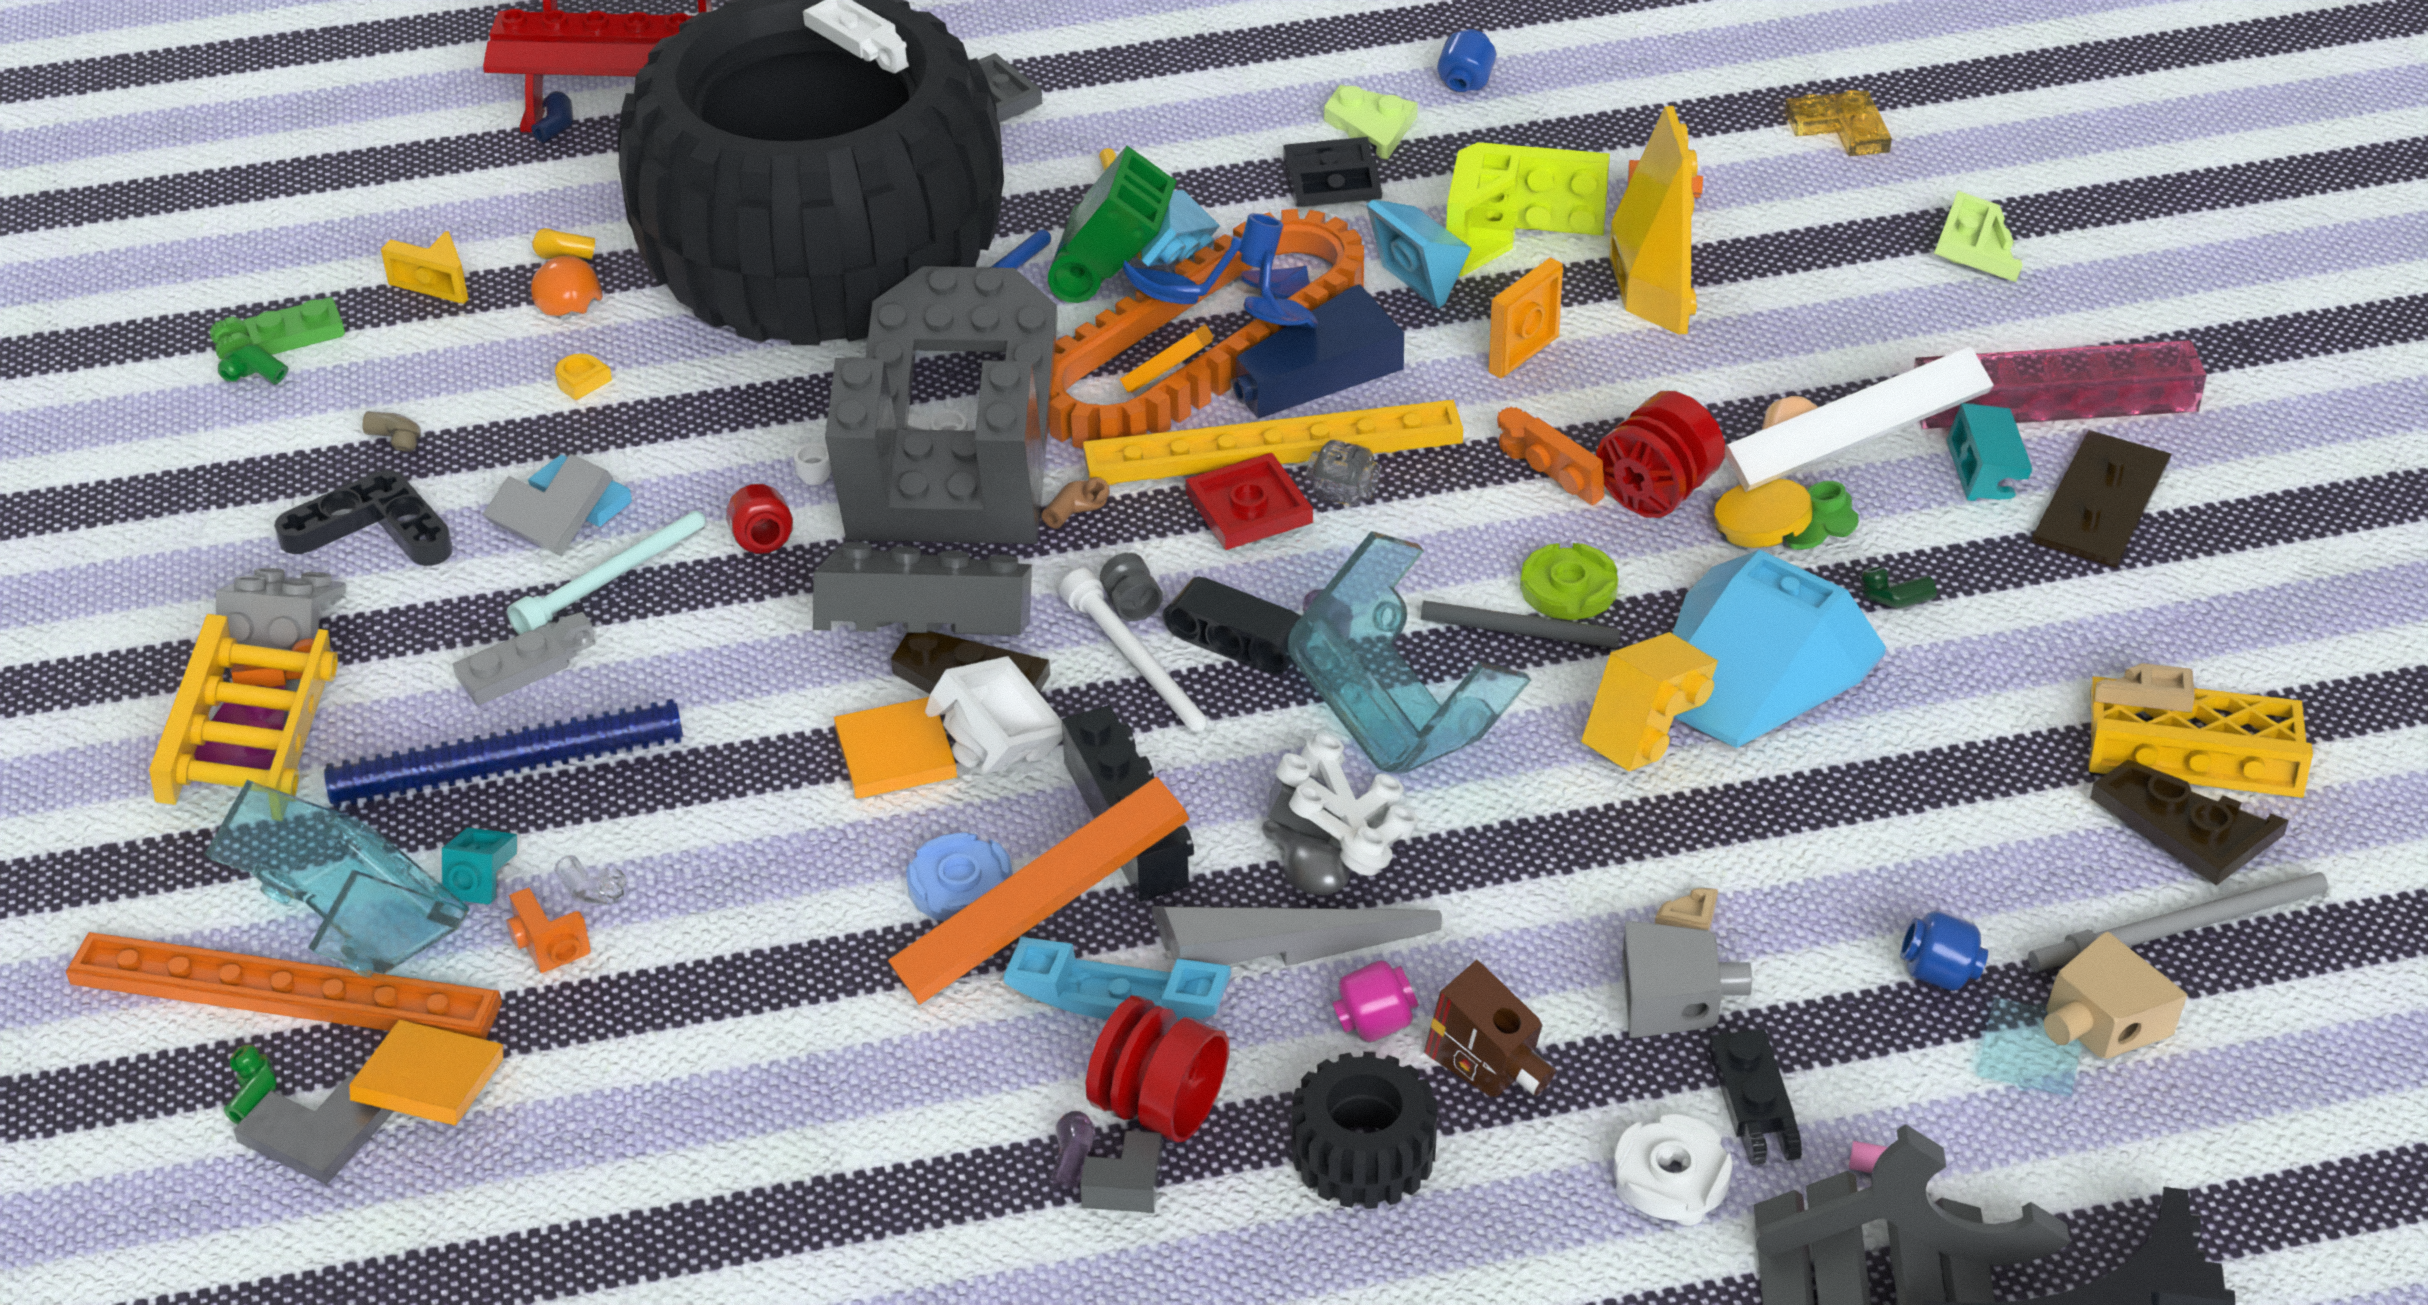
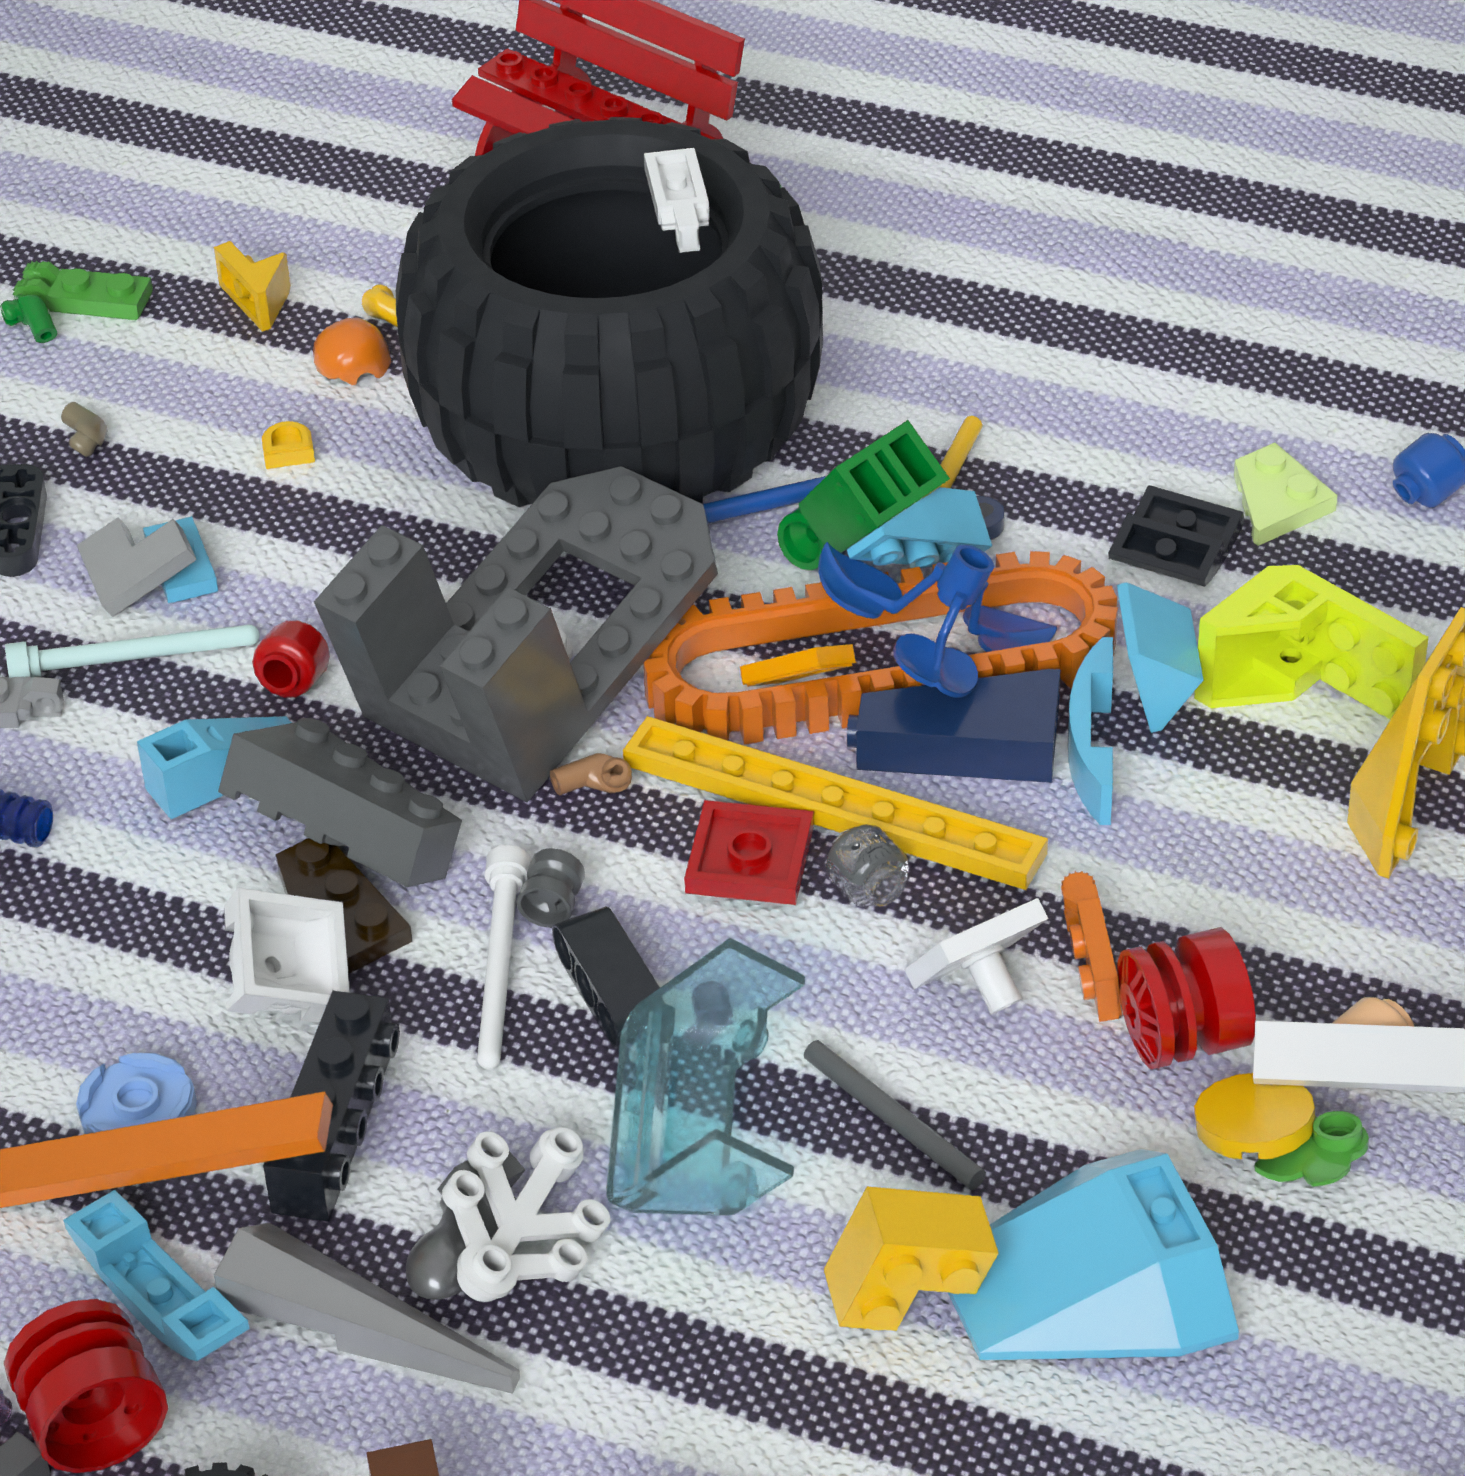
camera: 35 degrees right, 0 degrees up
(770, 617) = (188, 759): none -> medium azure slope
(894, 748) = (186, 947): light orange tile -> none
(1010, 88) = (921, 312): dark grey wing -> none
(1375, 1001) = (354, 1424): dark pink head -> none
(1434, 346) = (1092, 766): none -> medium azure slope
(1488, 487) = (980, 953): none -> white tile
(1525, 317) = (1193, 781): light orange tile -> none
(1569, 581) = (989, 1092): lime tile -> none
(1896, 595) = (1314, 1277): dark green arm -> none

